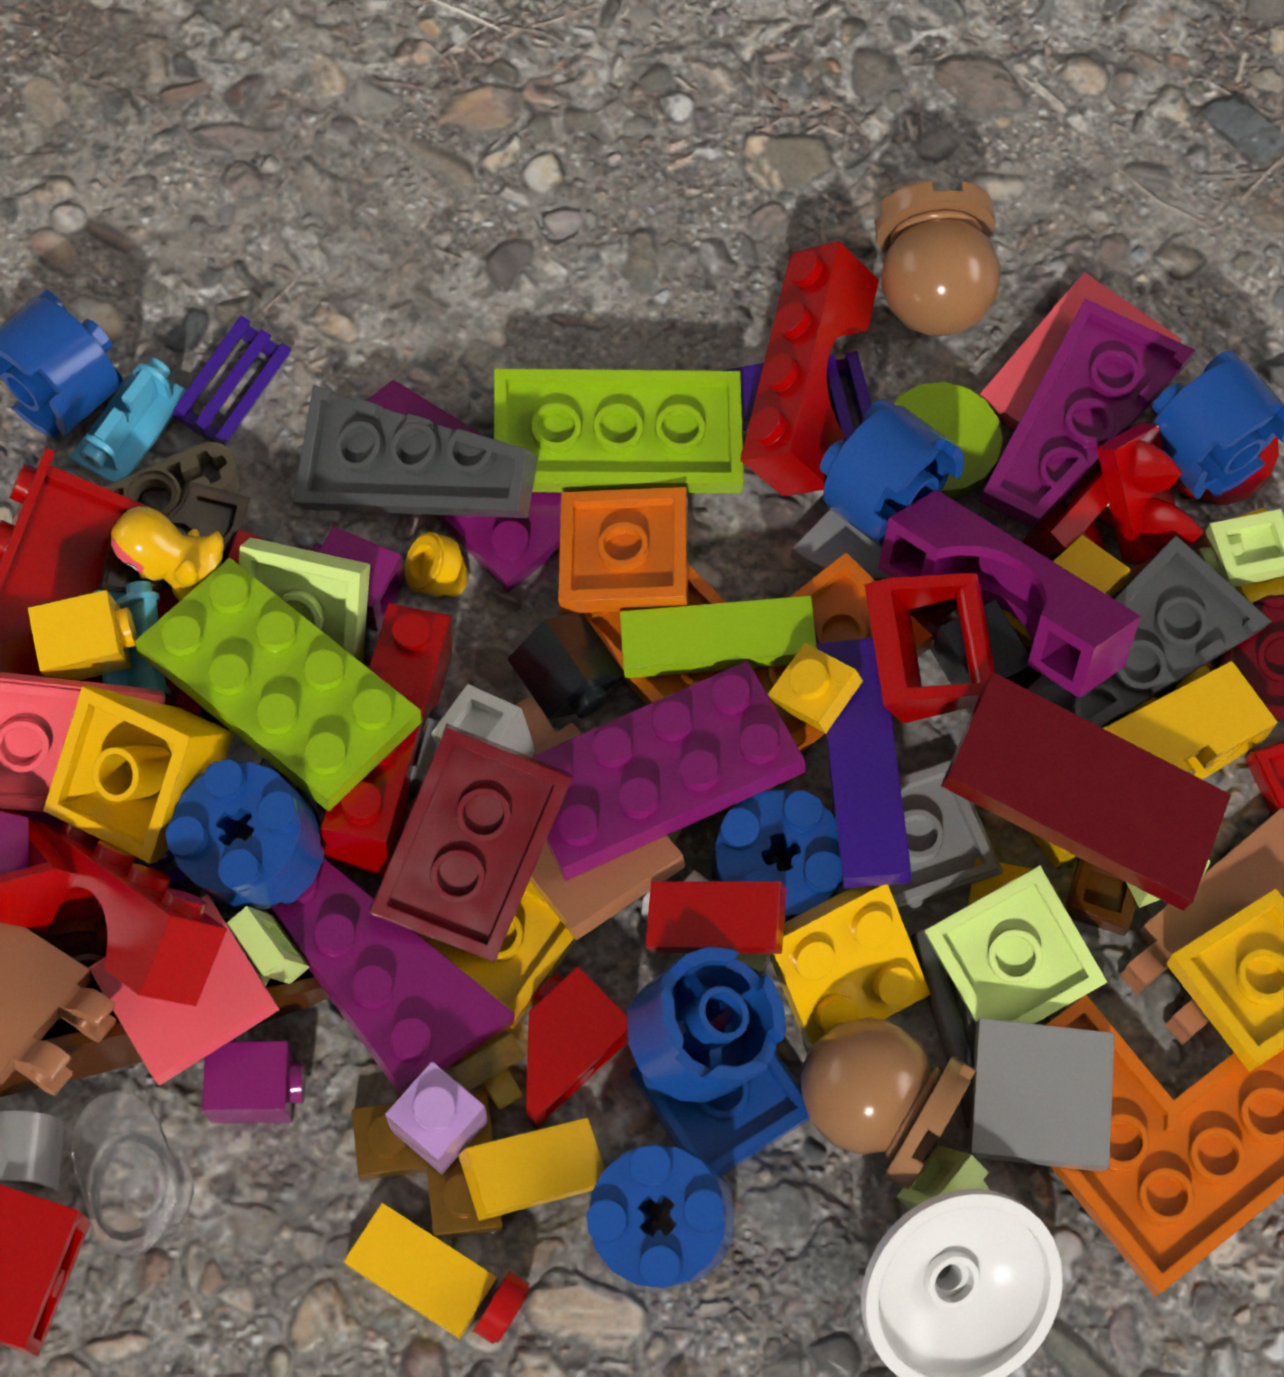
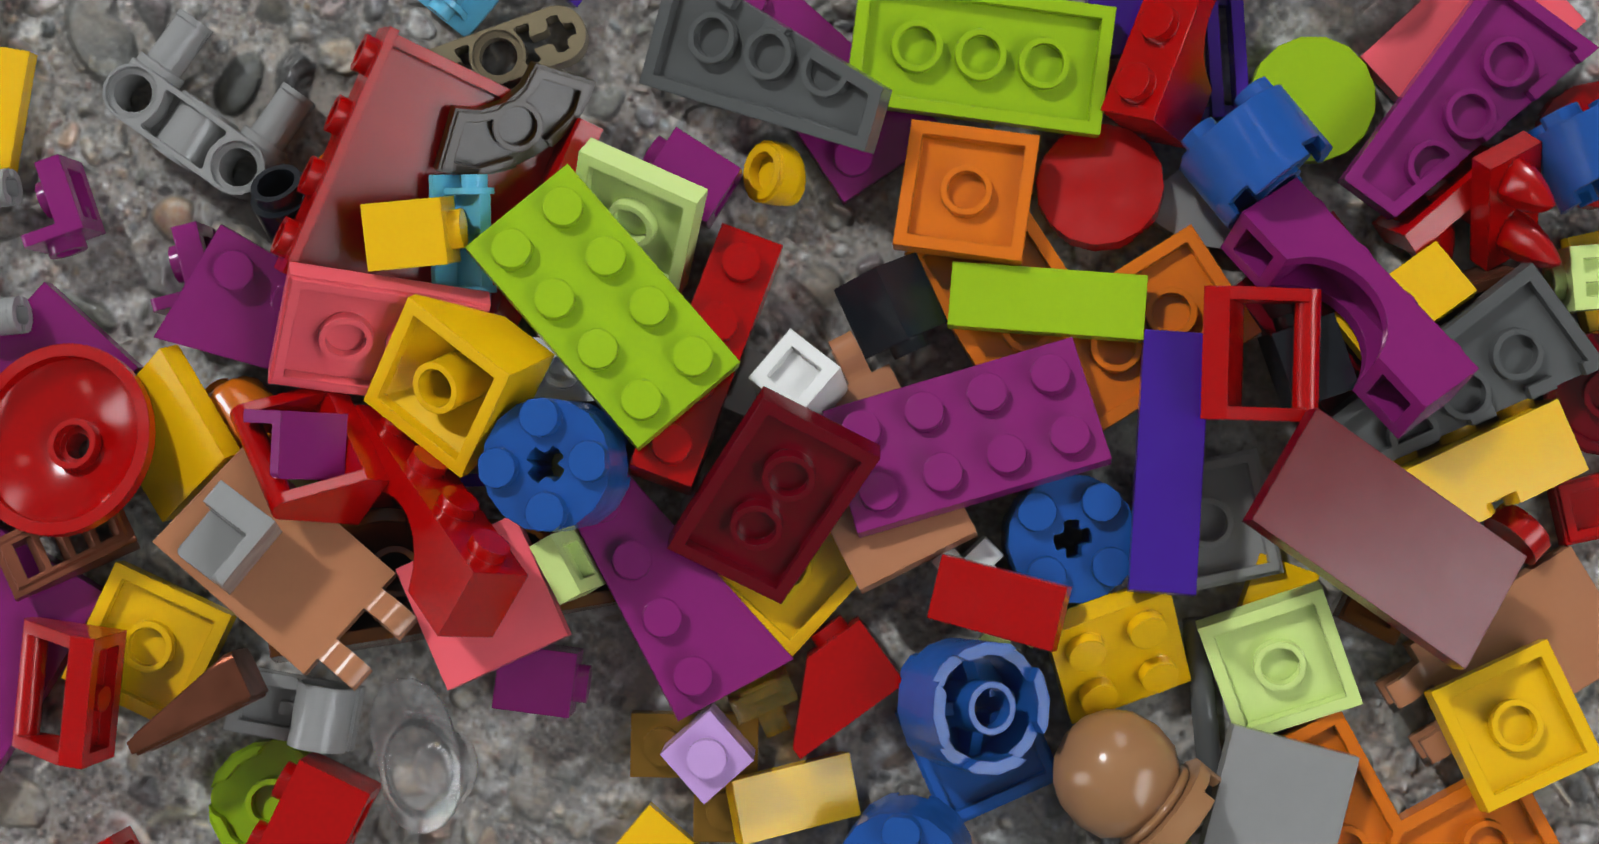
camera: 10 degrees right, 20 degrees up
(160, 551) = (497, 145): yellow animal -> none
(754, 538) = (1100, 188): none -> red tile
(815, 687) = (1135, 382): yellow plate -> none
(1243, 803) = (1520, 531): none -> red tile

